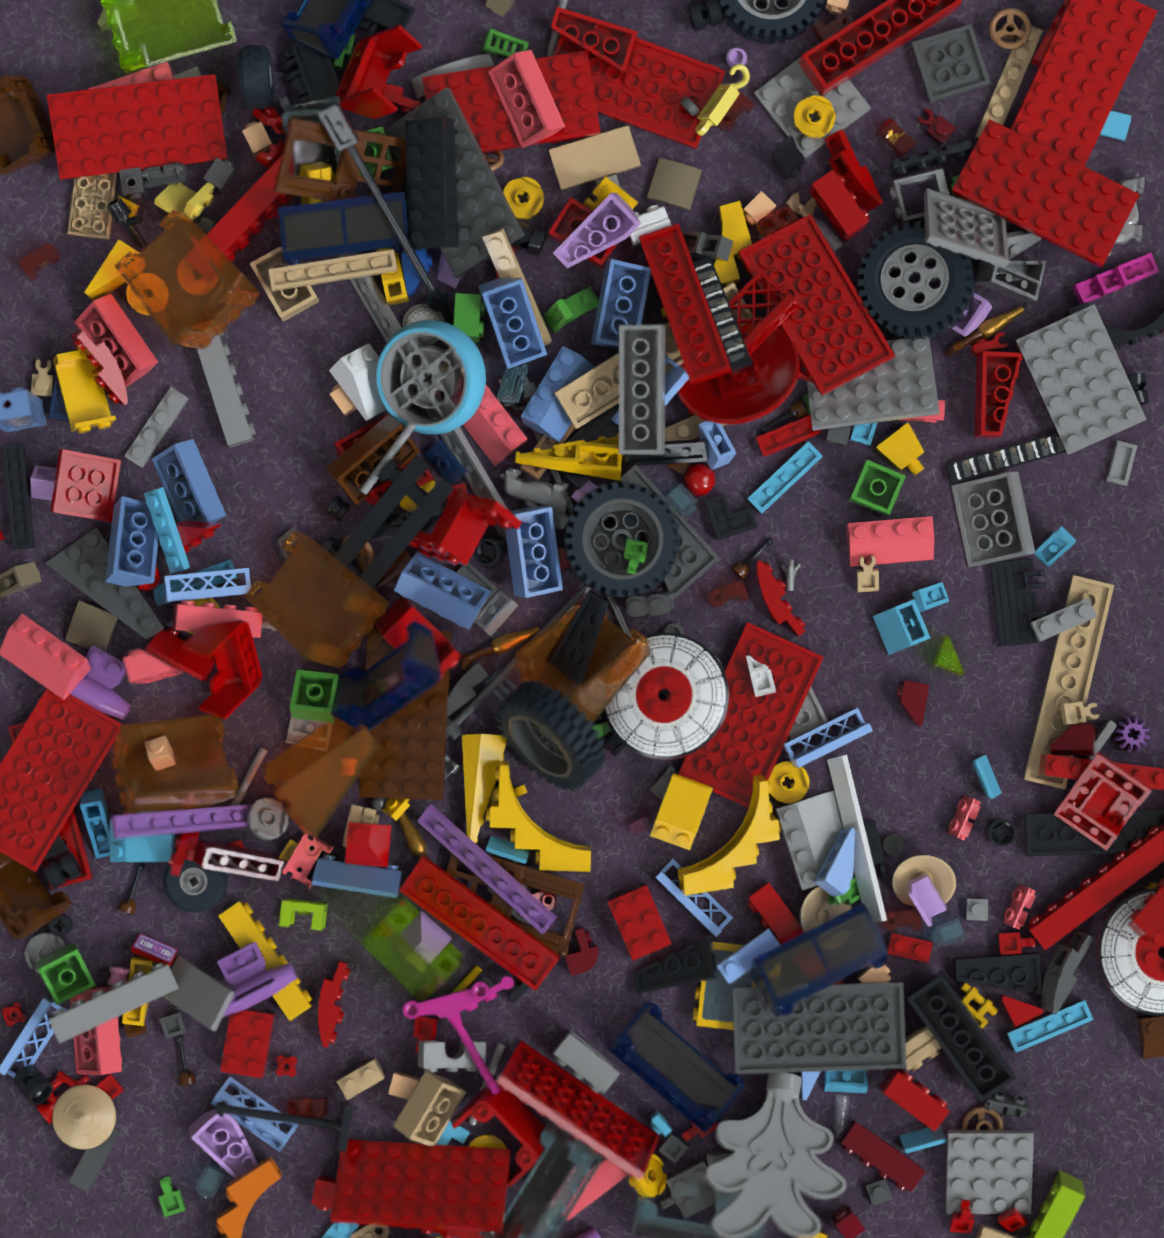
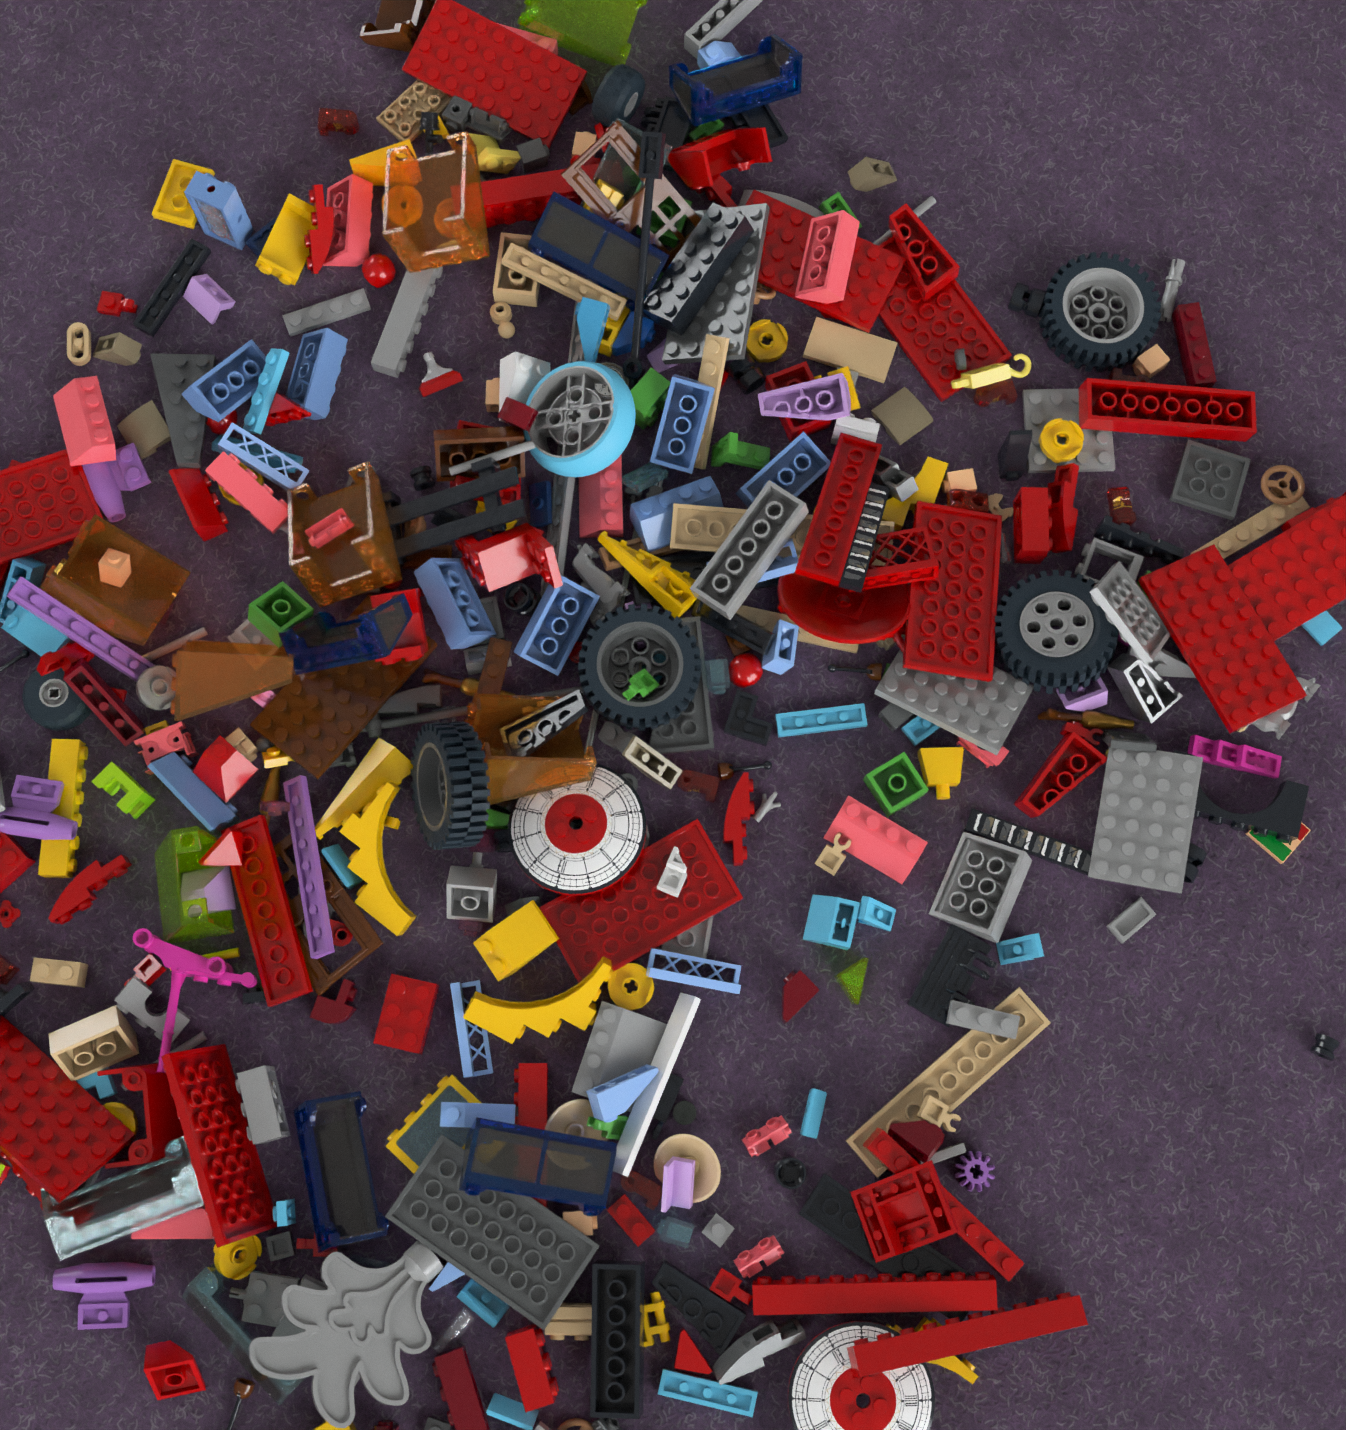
camera: 35 degrees right, 10 degrees down
(42, 383) = (264, 214): tan plate -> none
(85, 485) = (230, 312): plate -> none
(146, 668) = (156, 485): coral slope -> none
(172, 363) = (378, 270): none -> red hair
(236, 662) = (239, 535): red windscreen -> none
(288, 418) = (437, 376): none -> red piece
(301, 603) = (329, 528): none -> coral hinge
(309, 337) = (506, 328): none -> tan plate
(381, 291) = (591, 322): none -> dark azure slope
(382, 409) = (517, 414): none -> dark red brick
(403, 1085) = (88, 1003): light nougat brick -> none
(418, 900) = (225, 851): none -> slope
(426, 844) = (274, 808): none -> clear pink plate
(510, 620) = (495, 666): none -> reddish brown plate
(621, 798) = (471, 892): none -> light grey piece
(685, 606) = (651, 763): none -> dark tan slope
(685, 967) = (411, 1083): black wing -> none
(736, 56) = (1030, 350): lavender plate -> none
(786, 436) = (848, 686): red plate -> none
(938, 128) = (1162, 526): dark red plate -> none
(1028, 327) = (1128, 741): none -> dark grey tile

